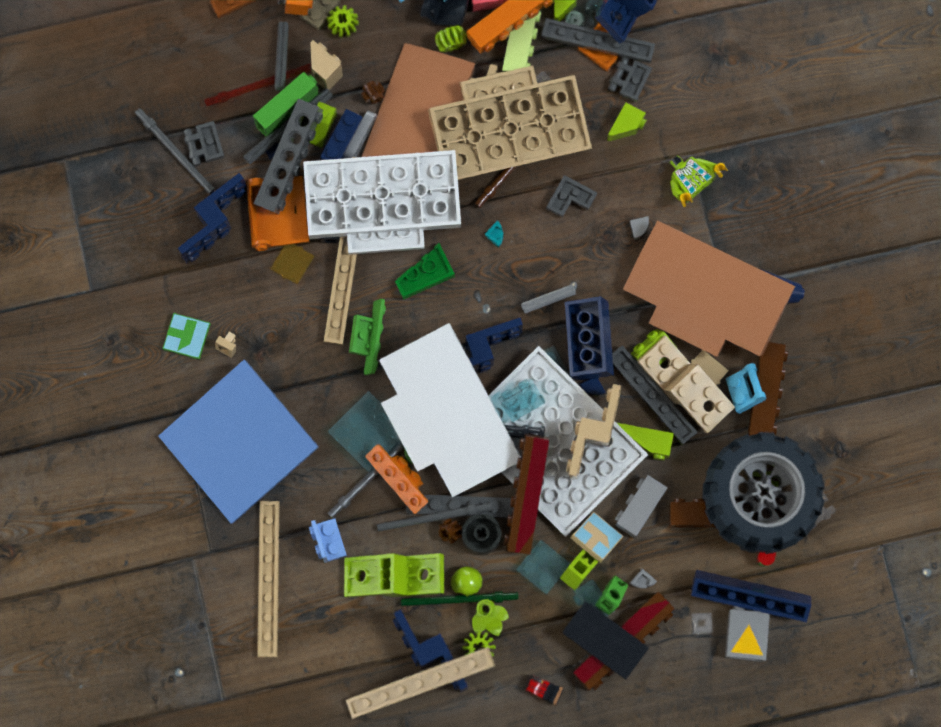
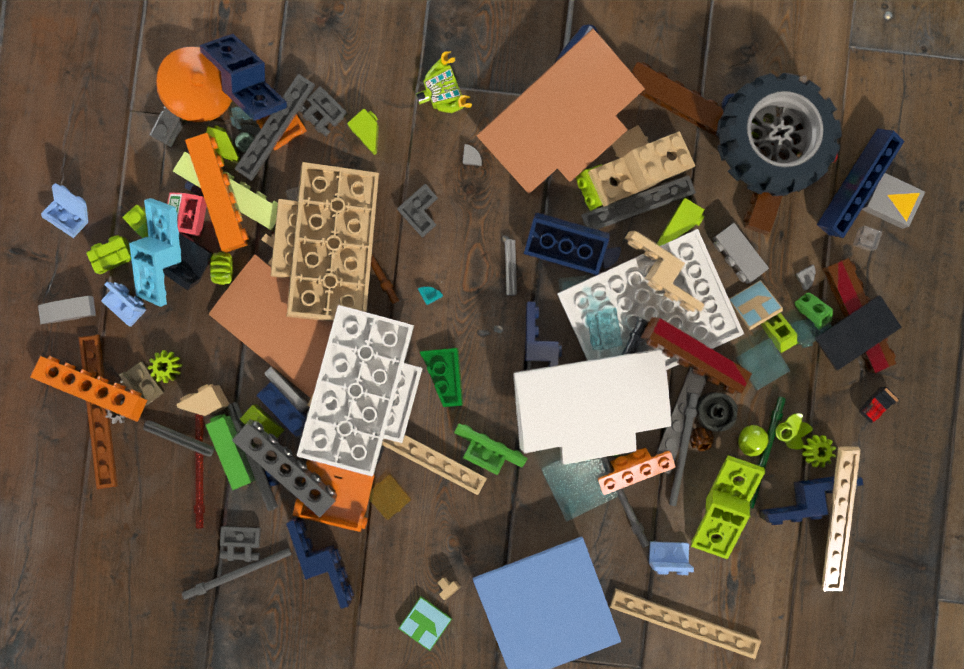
camera: 70 degrees left, 10 degrees up
(373, 92) = (248, 362): reddish brown gear -> none
(741, 391) = (665, 120): medium azure plate -> none

